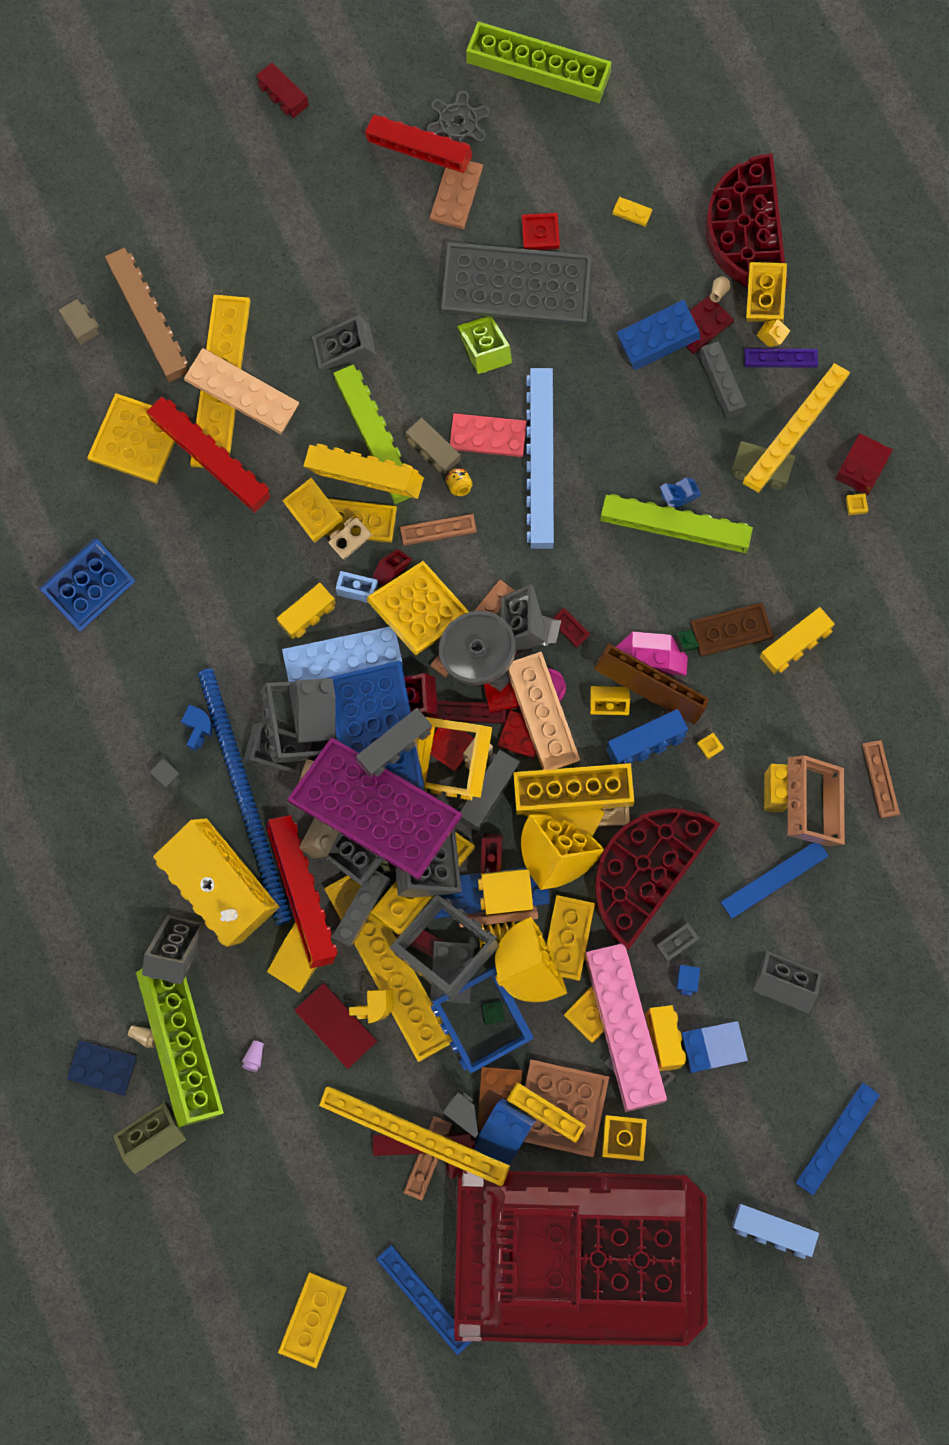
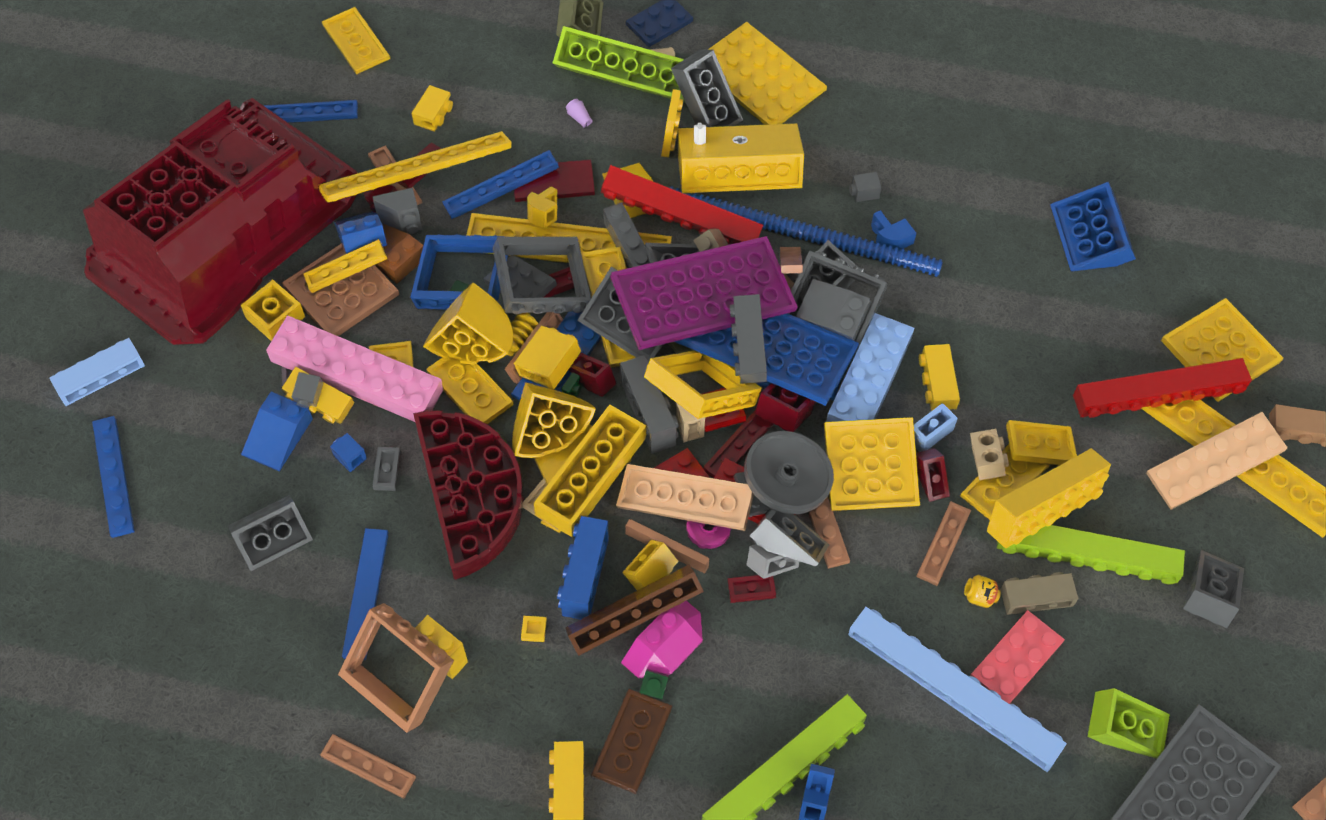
camera: 125 degrees right, 15 degrees down
(104, 940) = (765, 76): none -> yellow plate
(222, 959) = (672, 123): none -> yellow plate
(288, 773) = (791, 260): none -> nougat tile
(339, 1183) = (432, 108): none -> yellow brick
(373, 1062) = (500, 184): none -> blue tile
(512, 861) = (572, 385): none -> dark green plate
(584, 705) = (680, 551): none -> nougat tile
(674, 1038) = (307, 390): none -> dark grey brick

